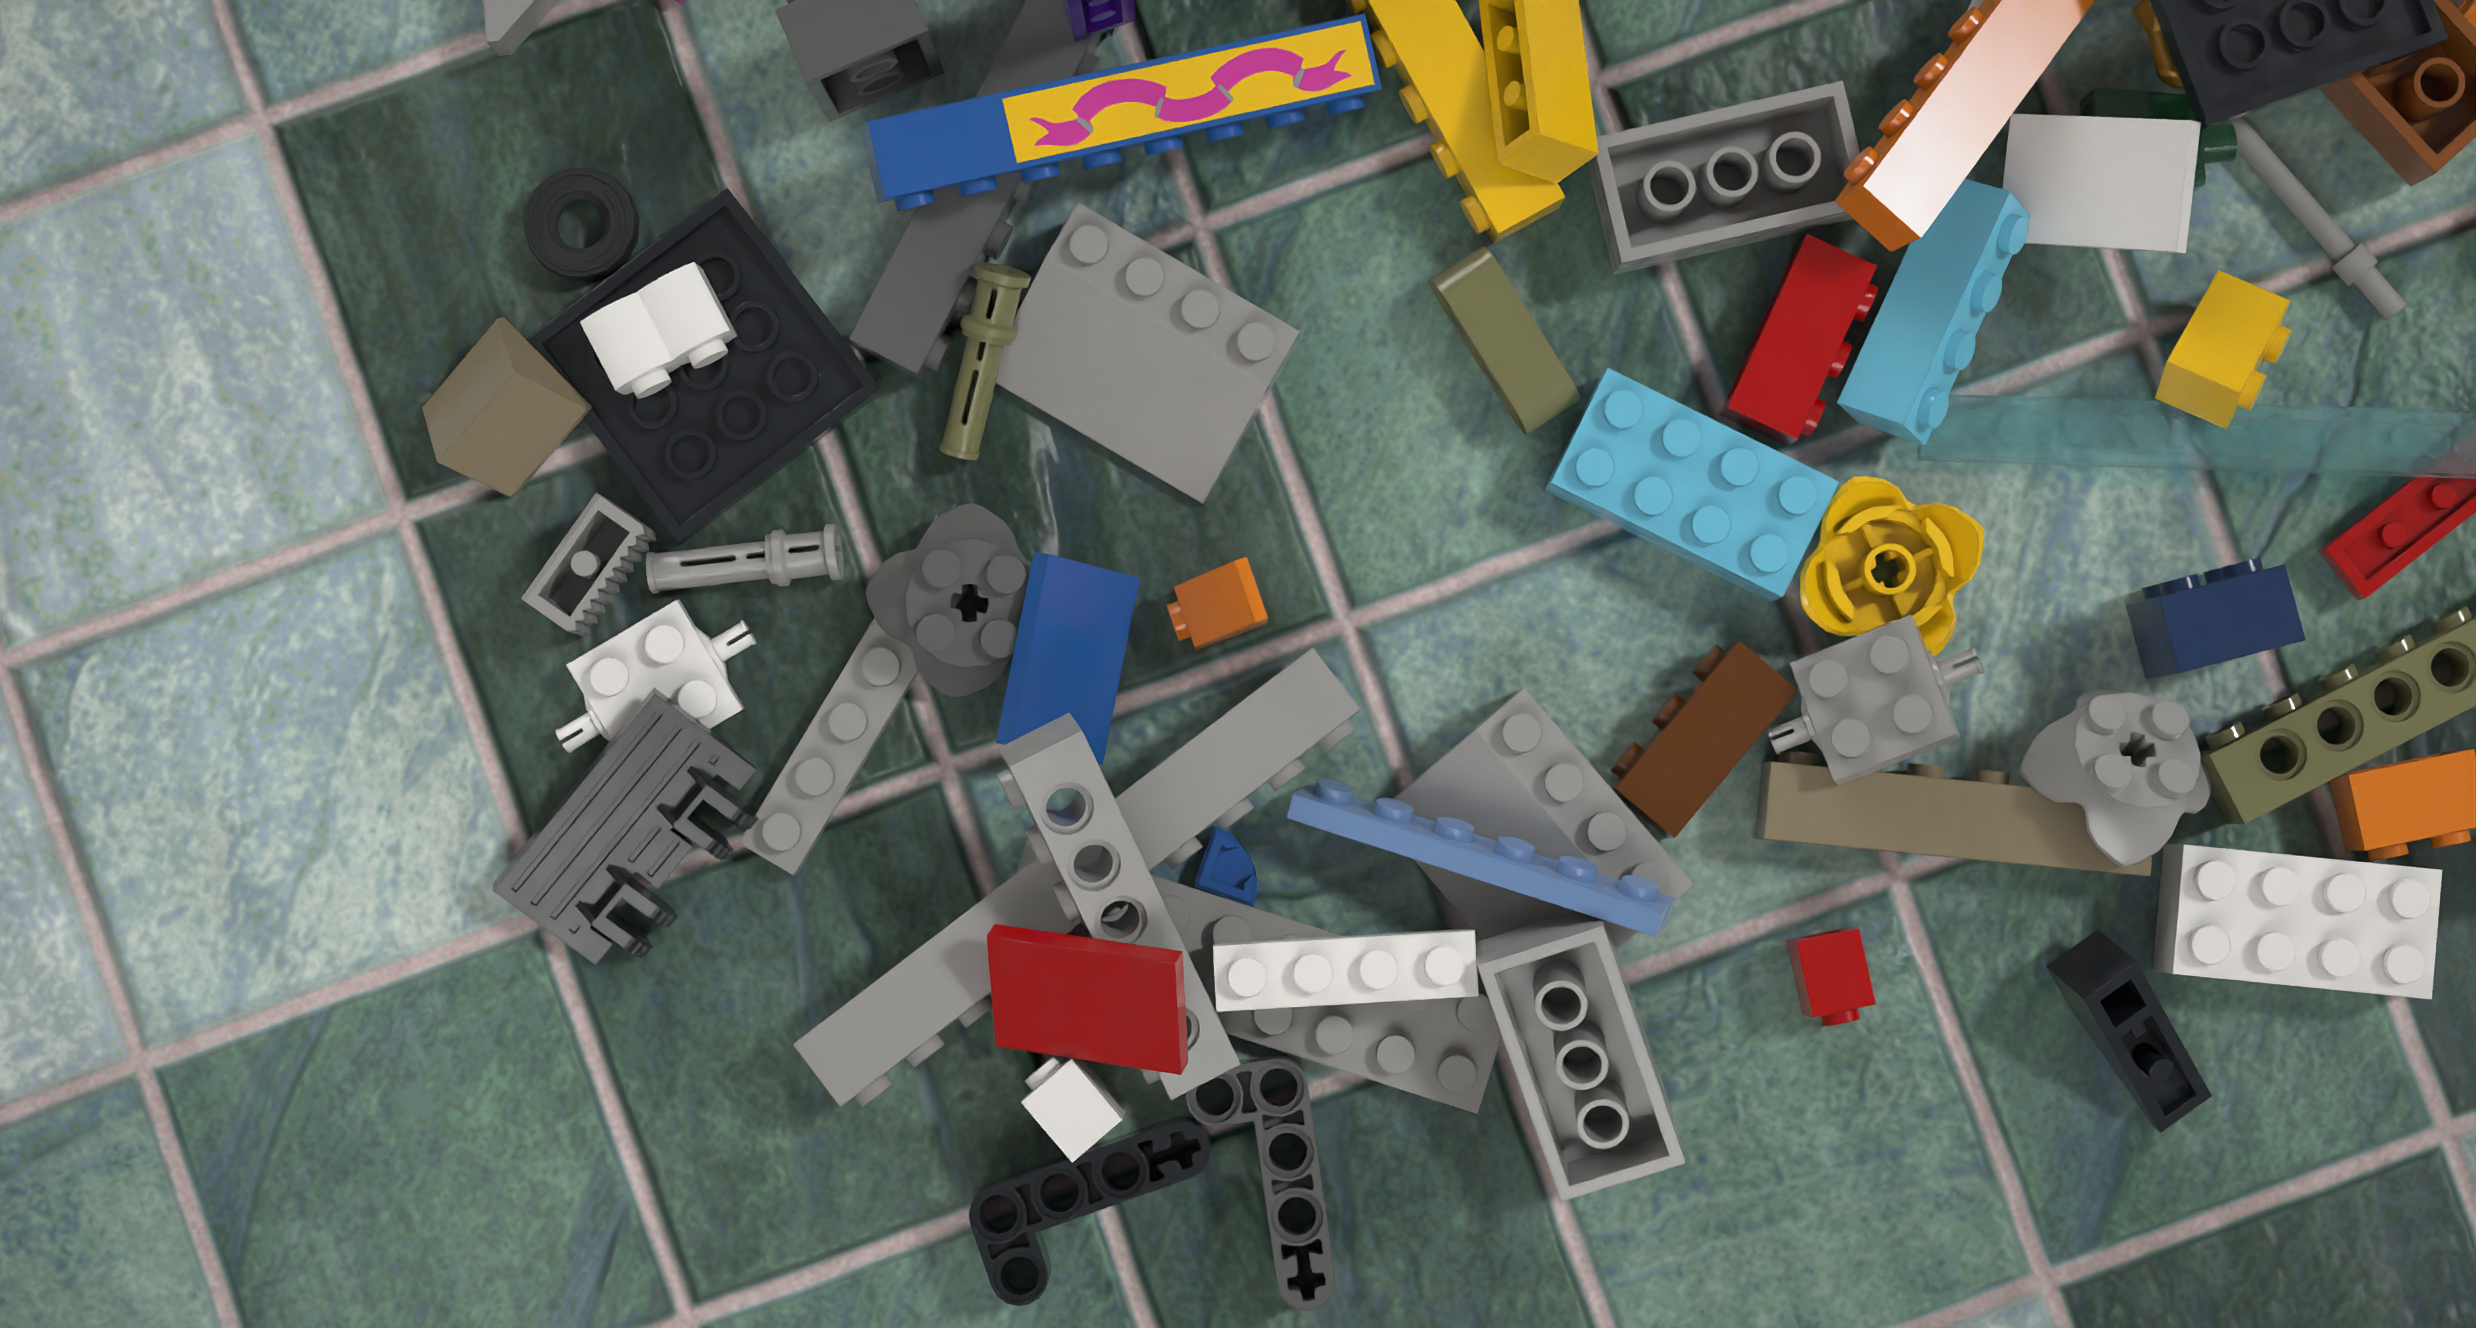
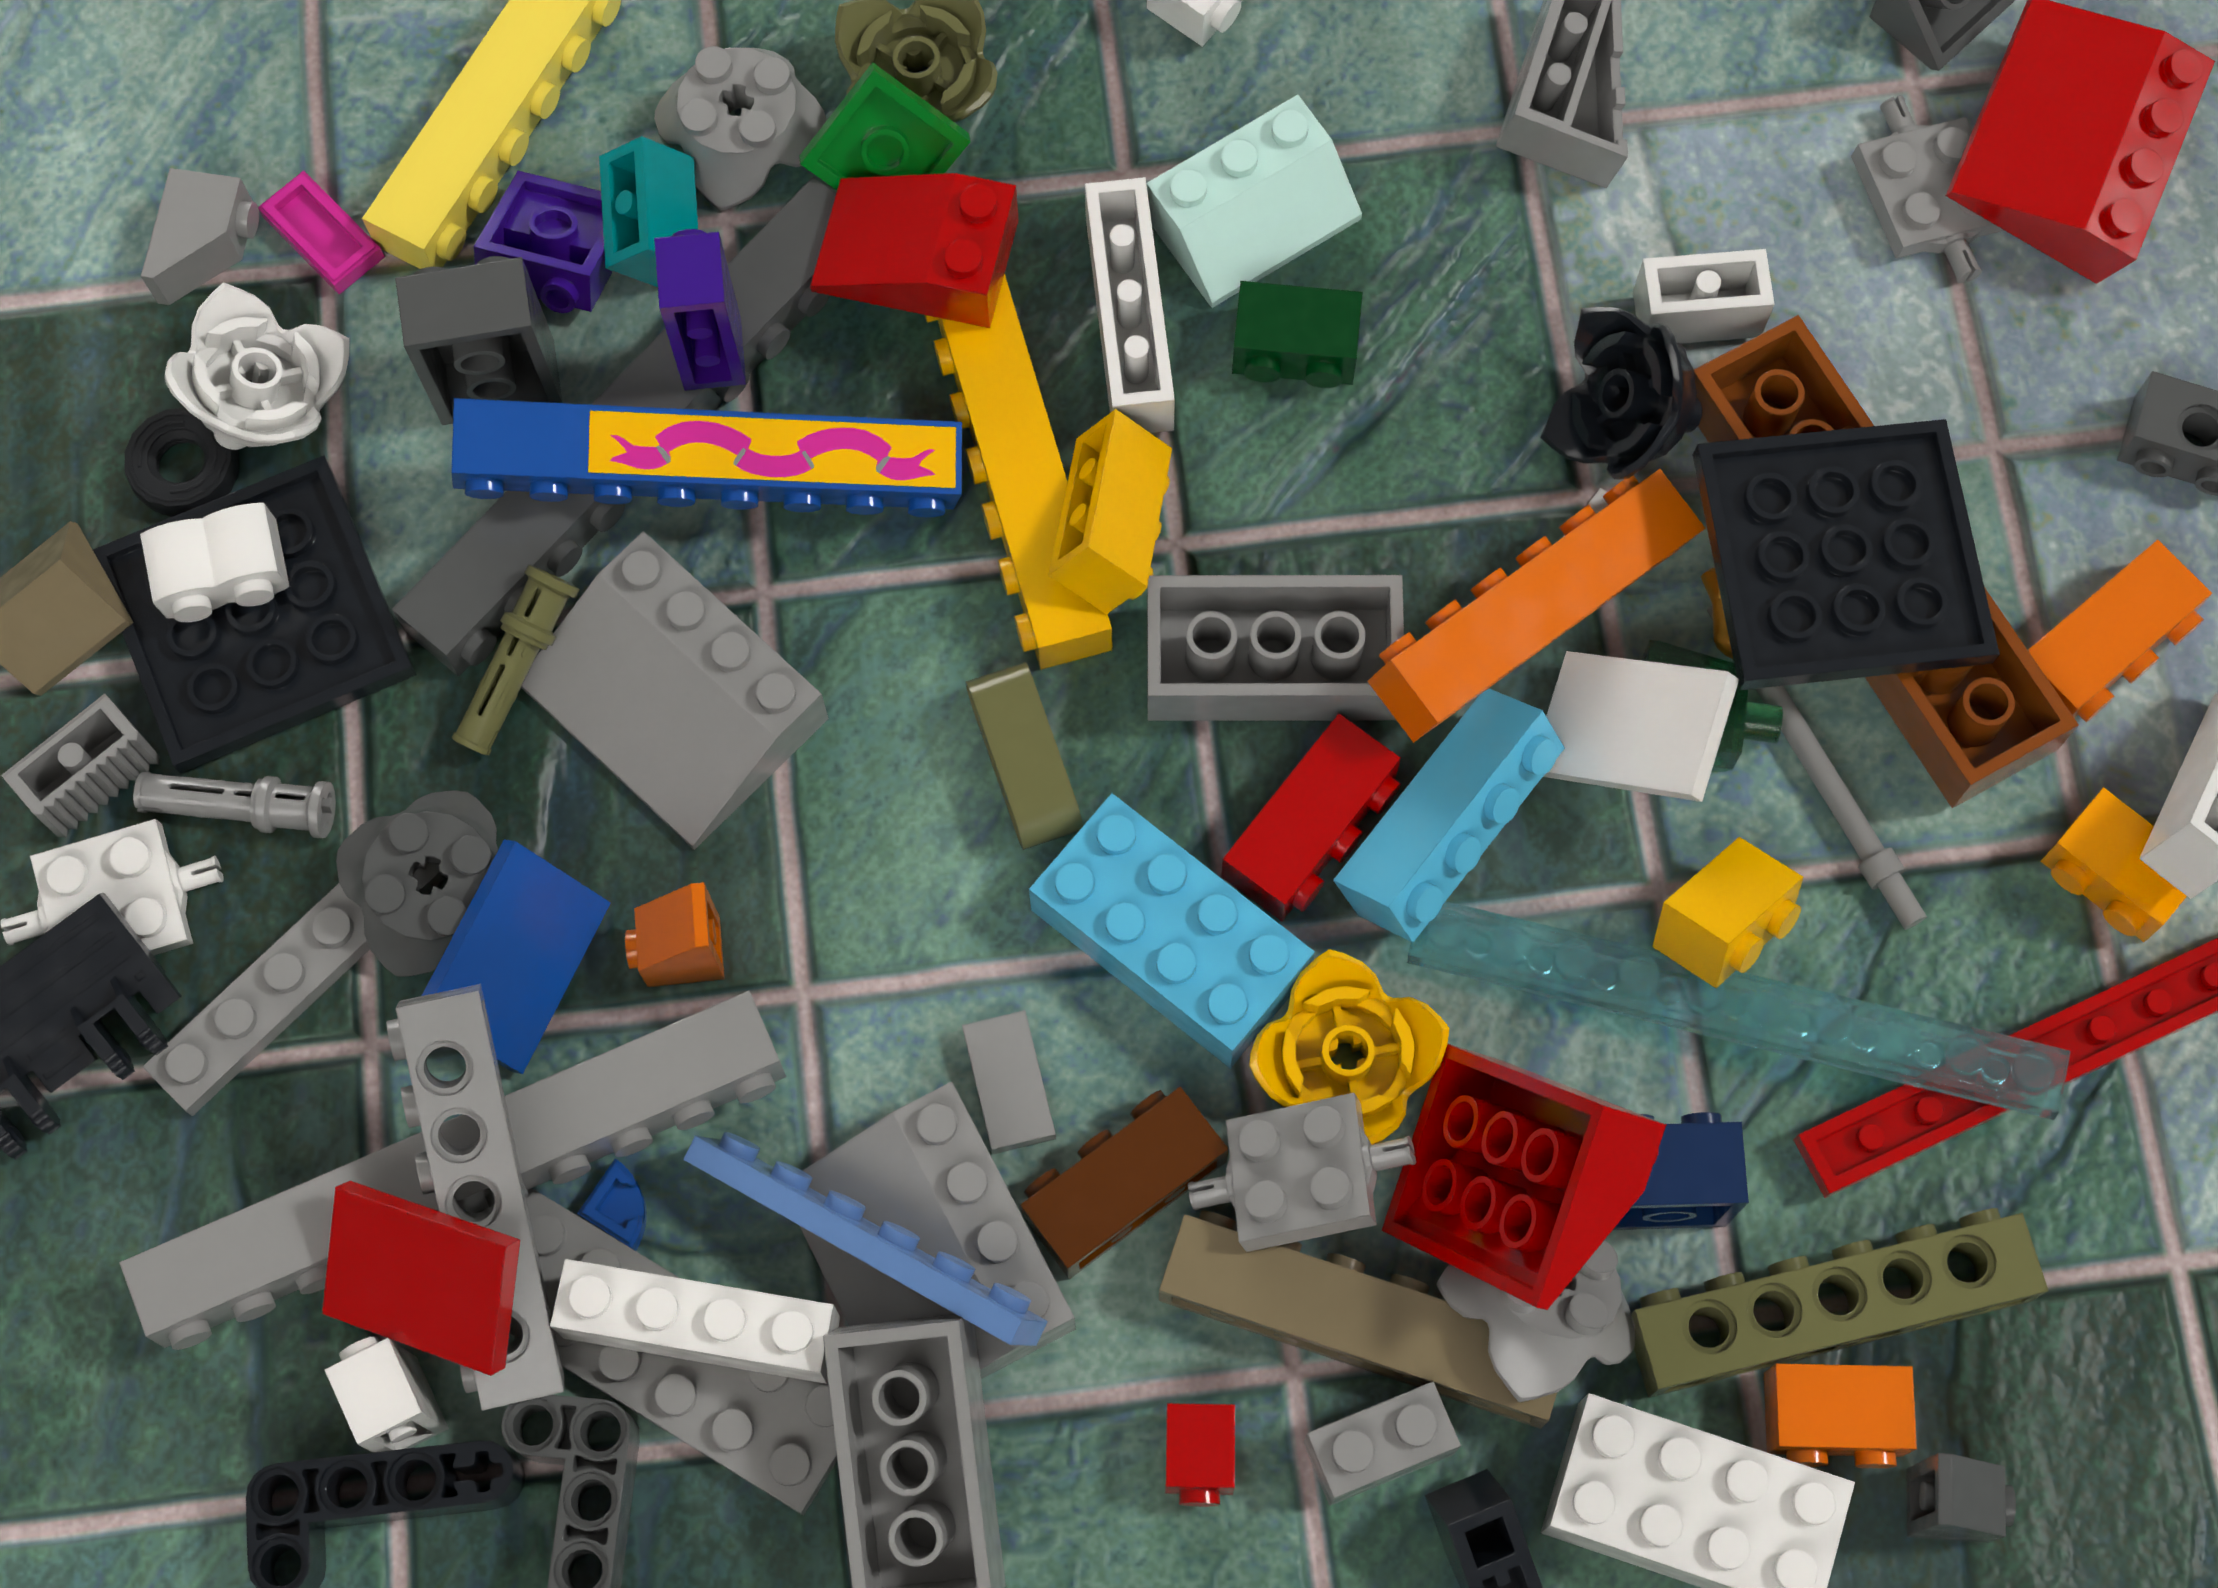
camera: 15 degrees right, 15 degrees down
(671, 96) = (241, 341): none -> white brick
(1567, 665) = (1009, 1082): none -> light grey tile
(1997, 929) = (1381, 1443): none -> light grey brick
(2086, 661) = (1518, 1175): none -> red slope

